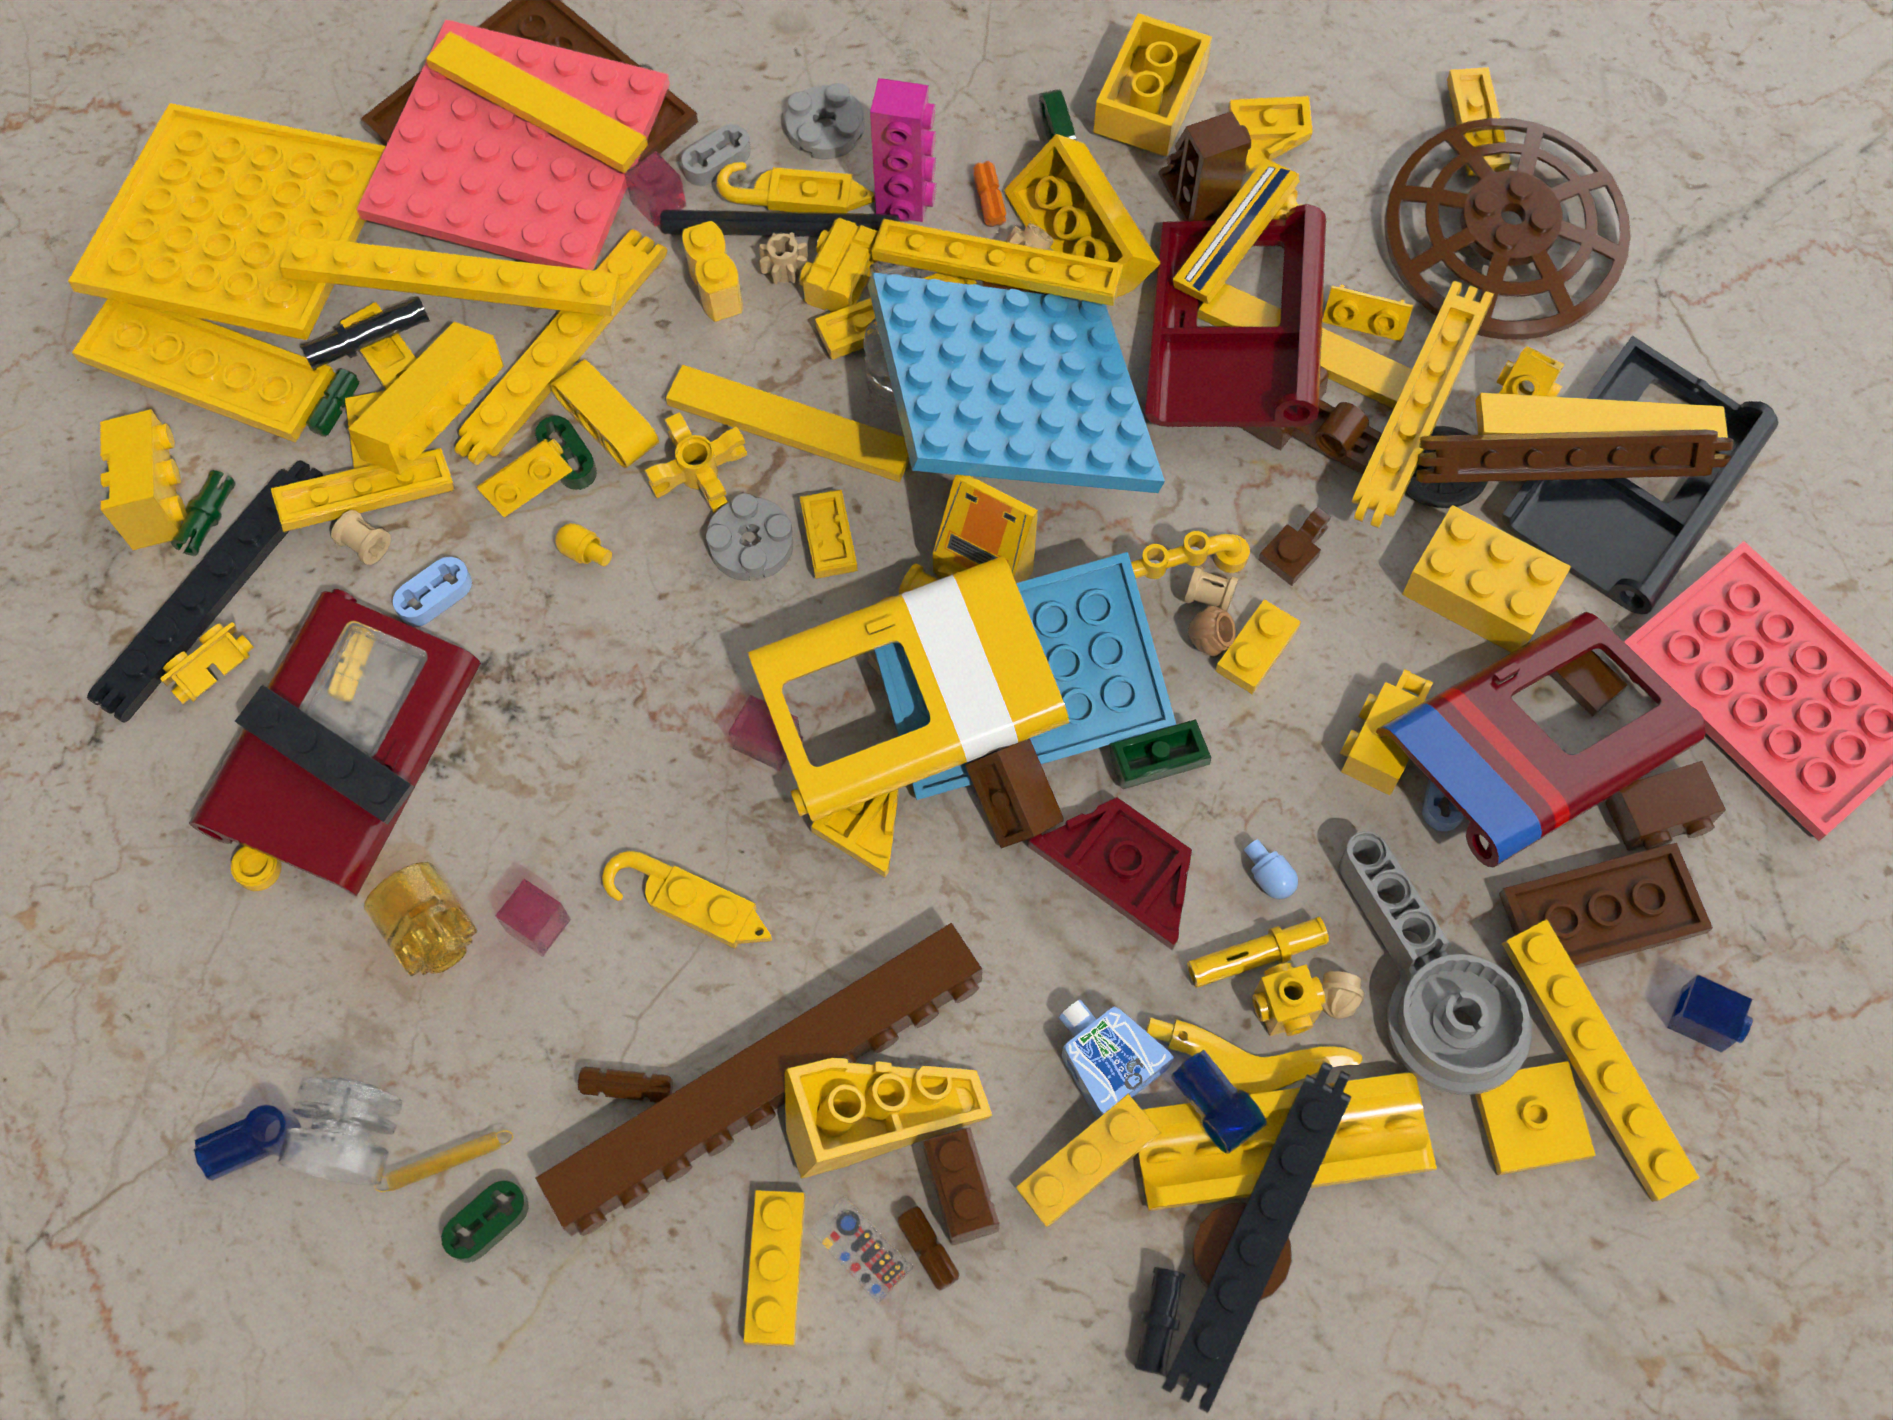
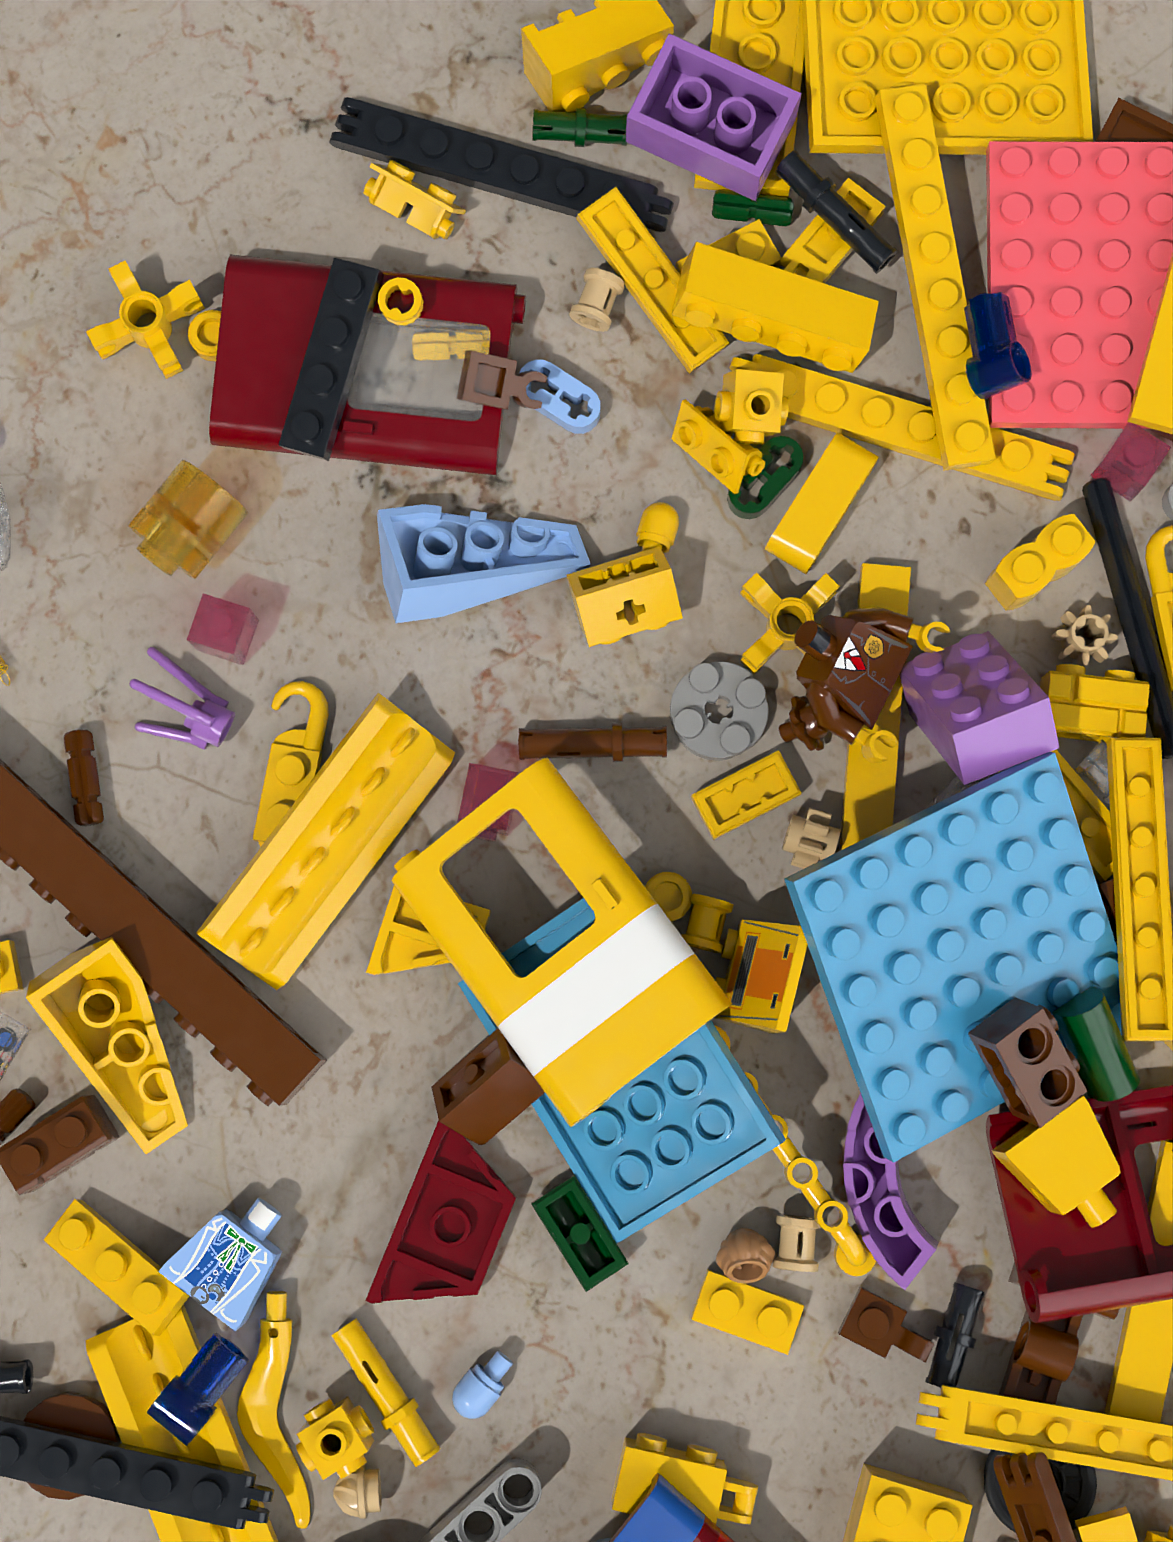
camera: 75 degrees right, 15 degrees up
(219, 936) = (178, 303): none -> yellow pin
(246, 394) = (712, 117): none -> medium lavender brick
(309, 686) = (394, 315): none -> yellow bush
(401, 625) = (493, 381): none -> reddish brown plate
(501, 432) = (751, 405): none -> yellow brick
(537, 242) = (997, 357): none -> clear blue piece
(548, 703) = (456, 562): none -> light blue wedge
(608, 956) = (207, 720): none -> medium lavender plant
(627, 576) = (625, 596): none -> yellow brick
(749, 623) = (593, 742): none -> reddish brown pin
(752, 412) = (853, 668): none -> reddish brown torso
(761, 877) = (327, 843): none -> yellow plate
(784, 471) = (803, 725): none -> reddish brown plant
(815, 329) = (978, 707): none -> medium lavender brick
(882, 491) = (810, 838): none -> tan gear
(1111, 362) = (1022, 1065): none -> reddish brown brick
(1112, 322) = (1097, 1045): none -> dark green brick
(1178, 515) = (880, 1204): none -> medium lavender brick
(1194, 364) = (1064, 1163): none -> yellow torso
(1314, 495) = (964, 1301): none -> black pin

